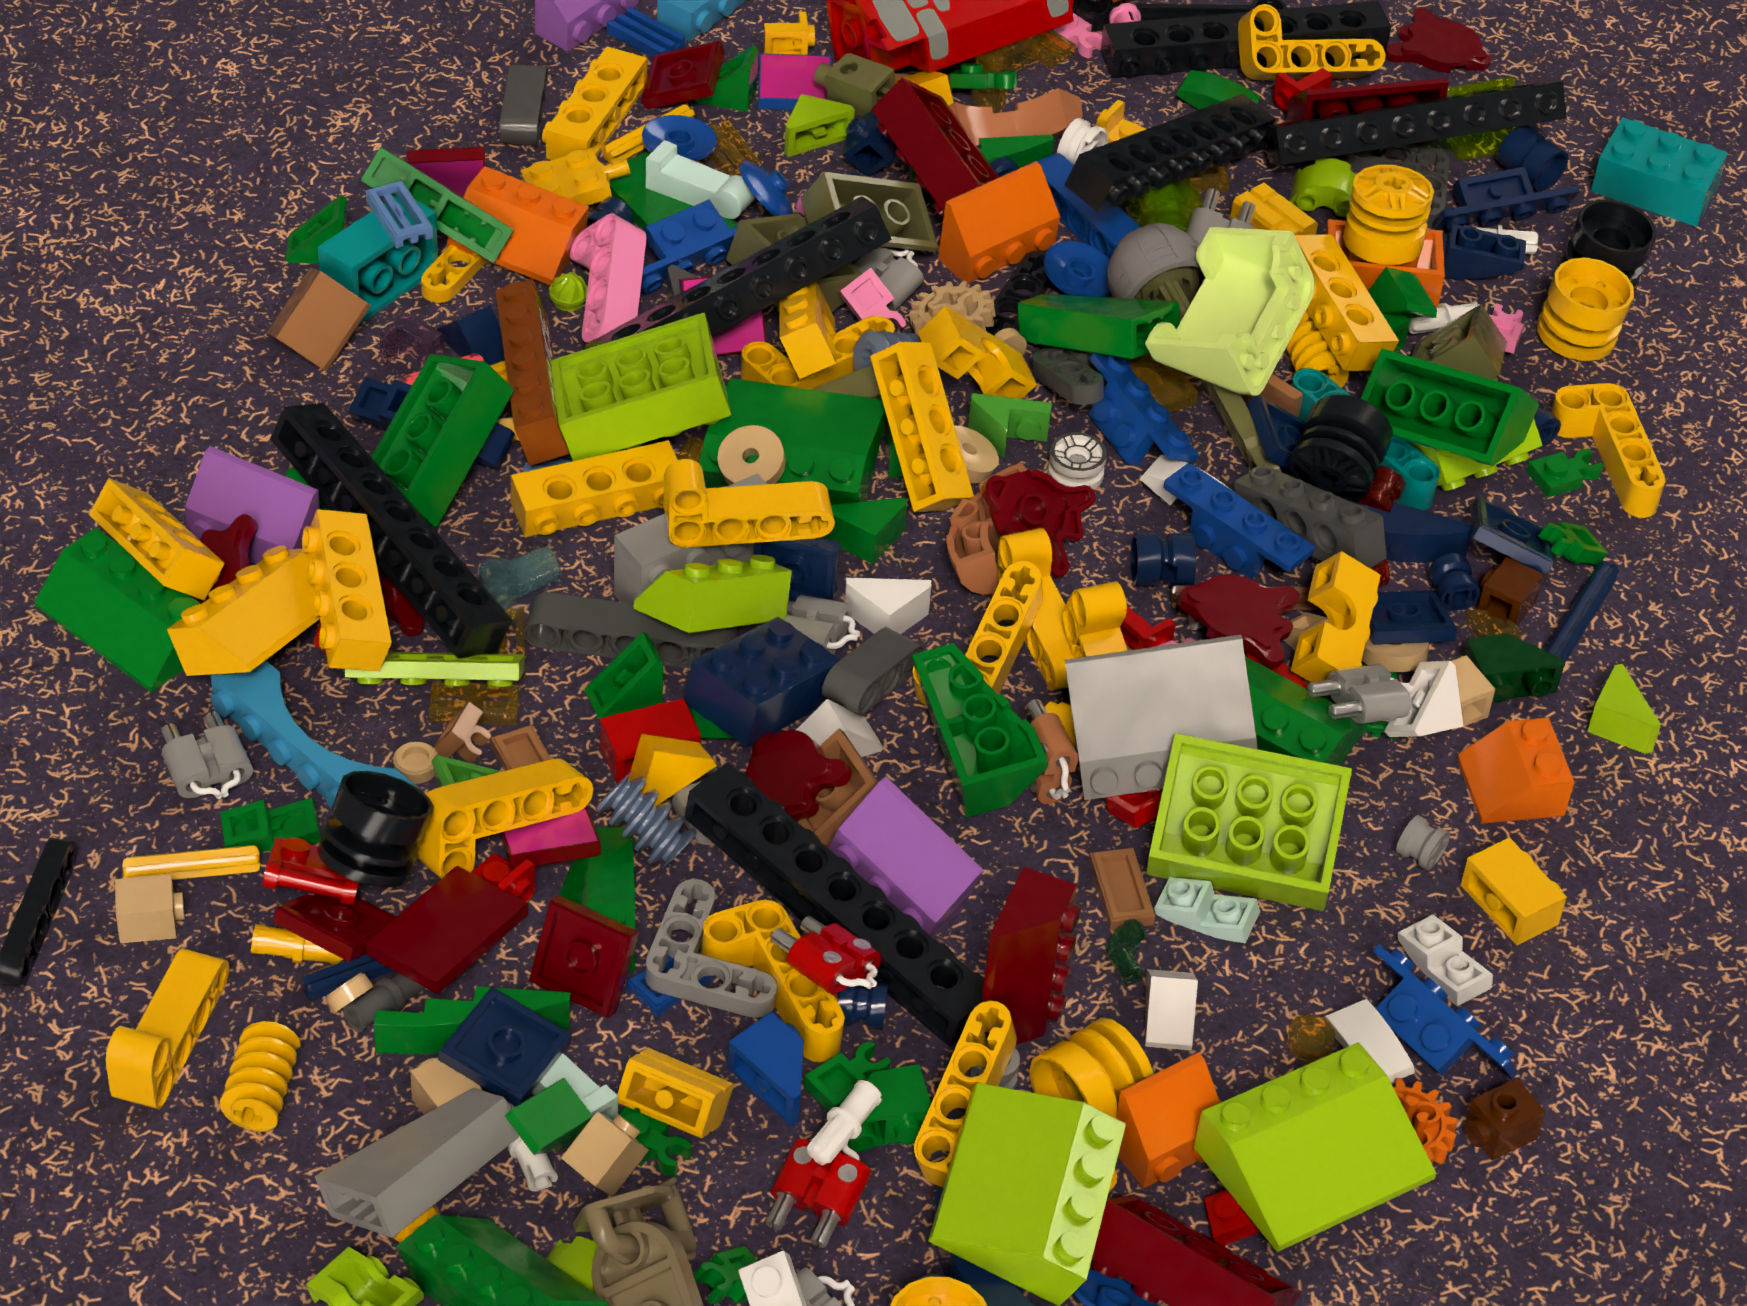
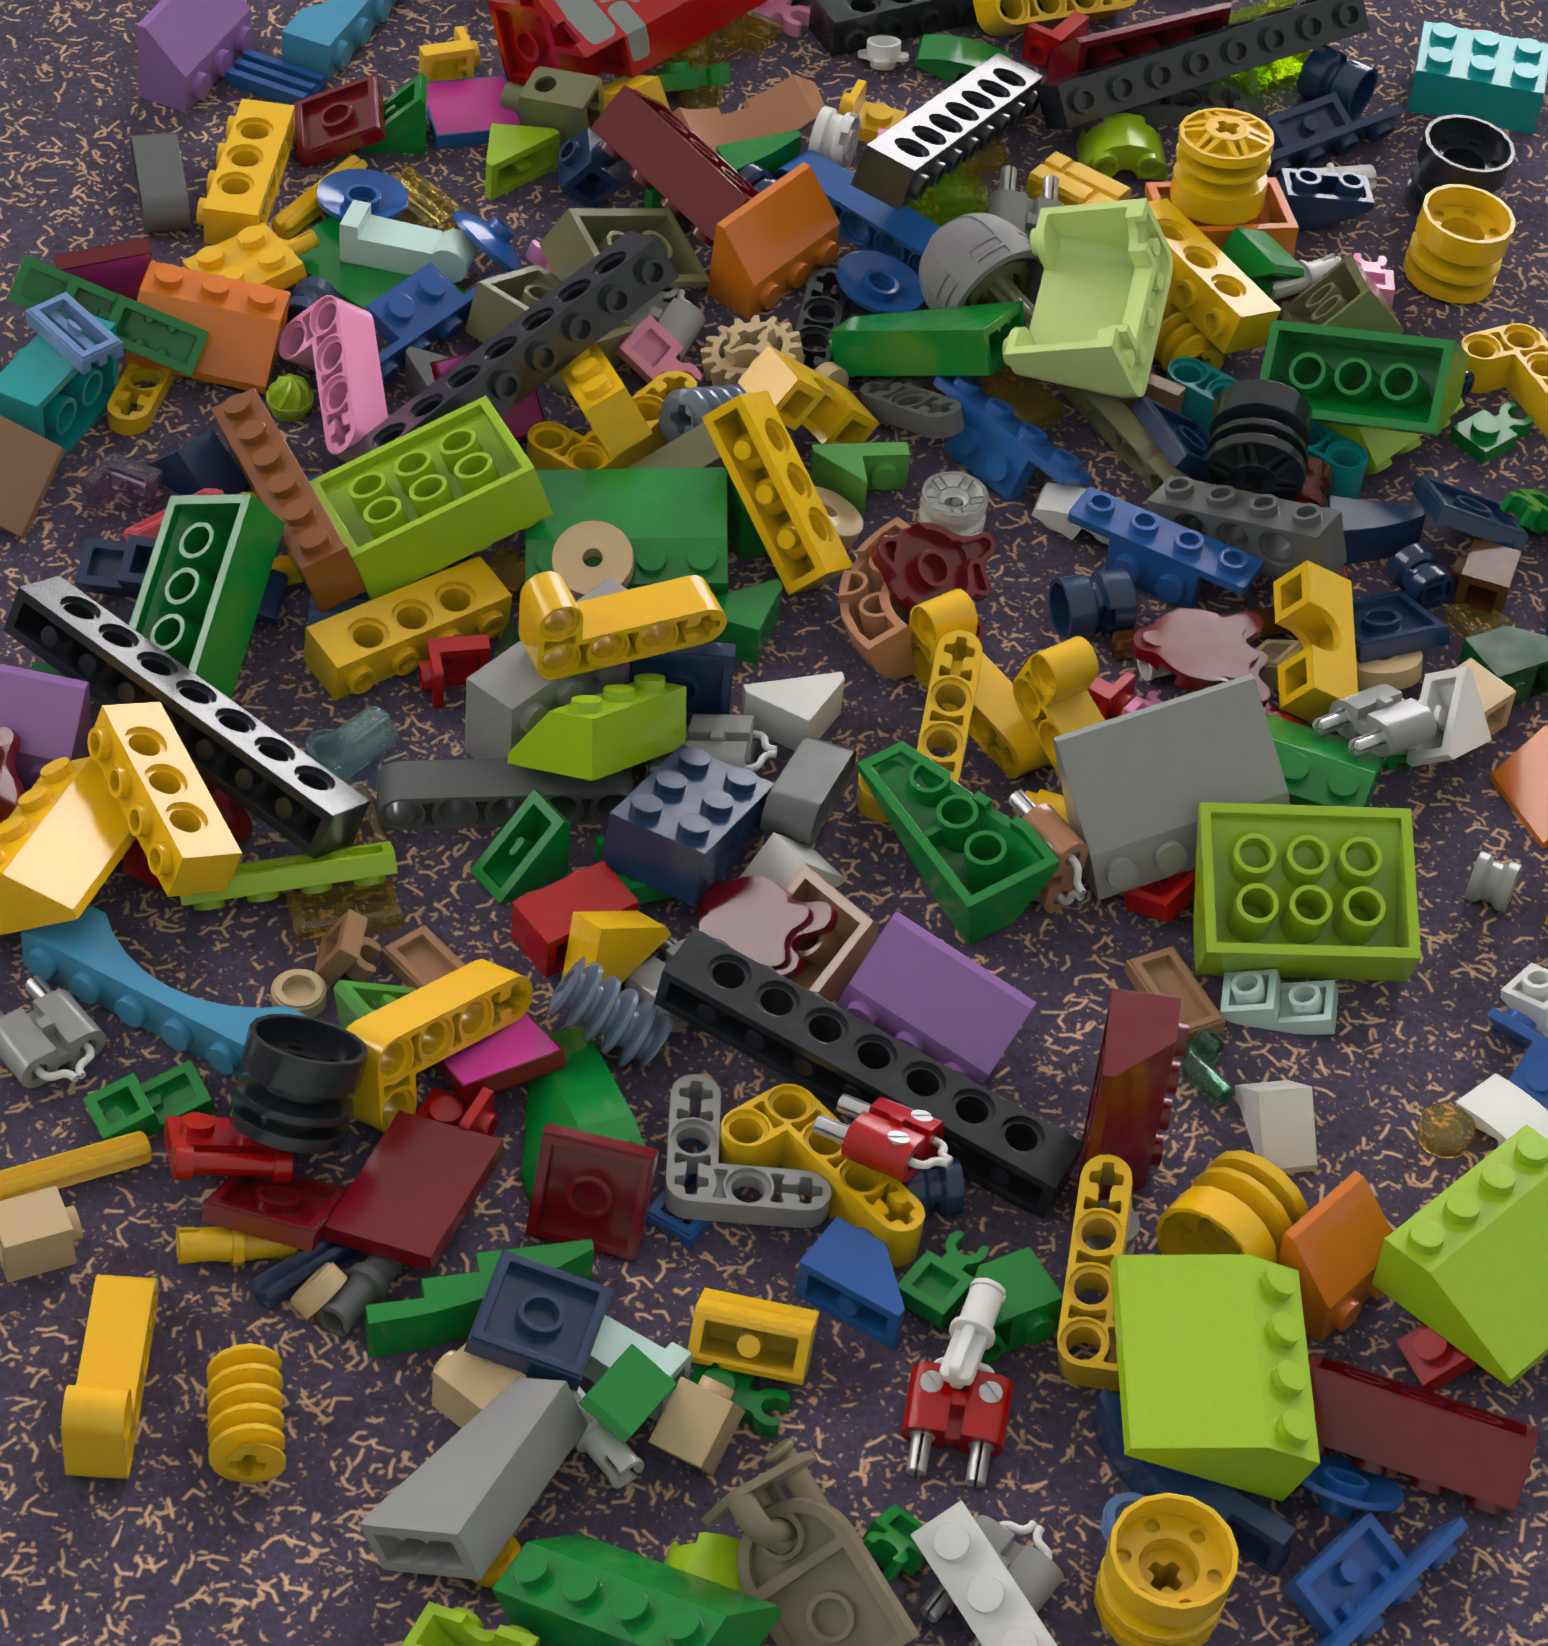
camera: 15 degrees left, 0 degrees up
(617, 518) = (451, 662): none -> red bracket
(1153, 80) = (883, 52): none -> white plate

